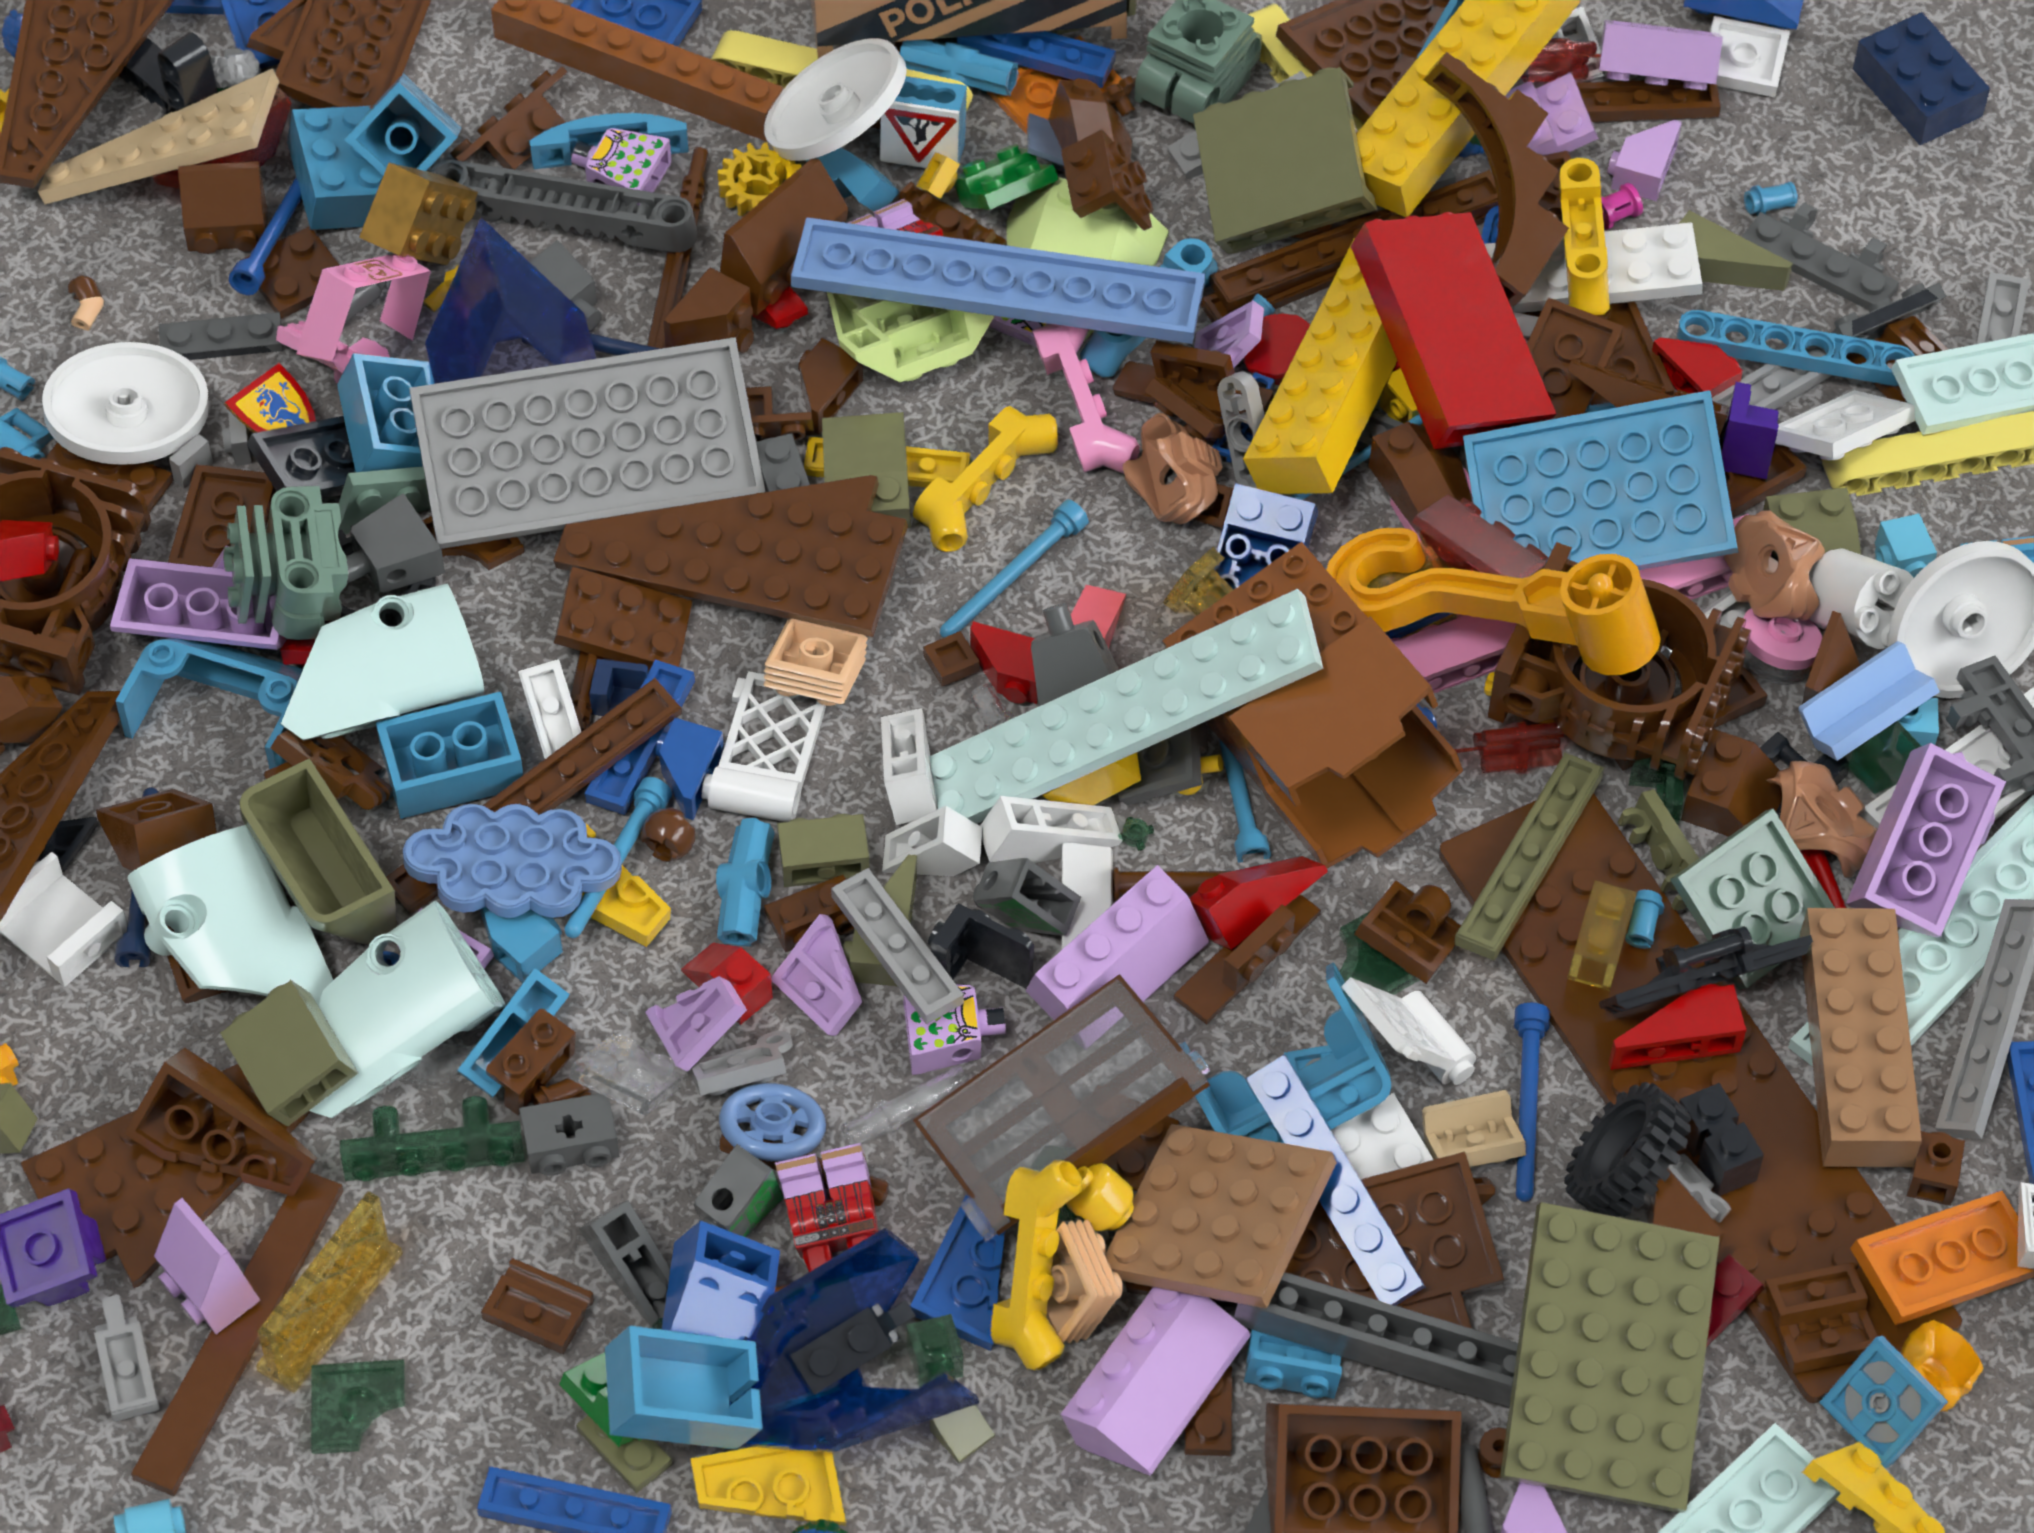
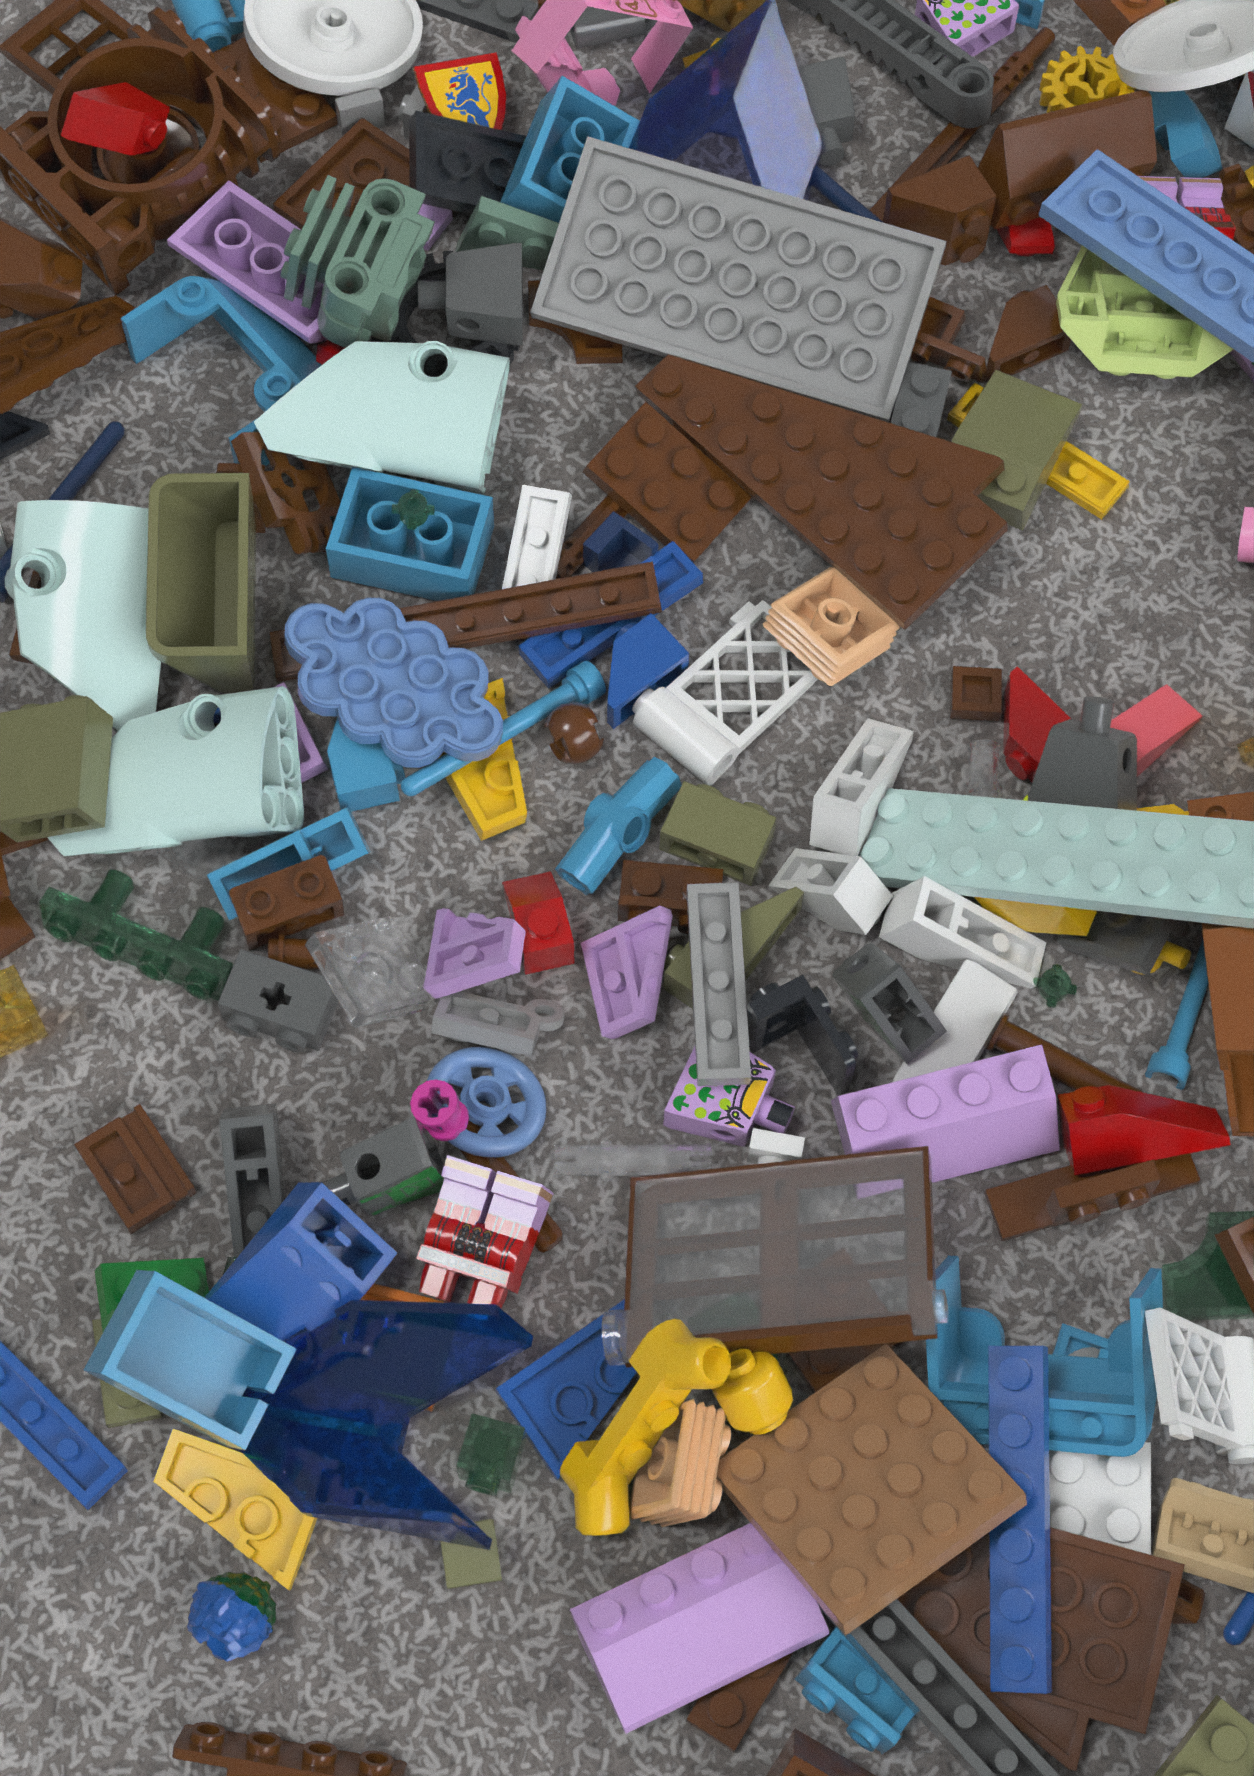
camera: 30 degrees right, 10 degrees up
(155, 825) = (89, 464): reddish brown slope -> none
(446, 728) = (413, 509): none -> clear green piece
(755, 1121) = (428, 1101): none -> dark pink bush
(849, 1345) = (404, 1399): black hinge -> none
(1003, 1040) = (774, 1147): none -> white plate
(1009, 436) = (1181, 485): yellow plate -> none
(1067, 520) = (1186, 605): dark azure piece -> none

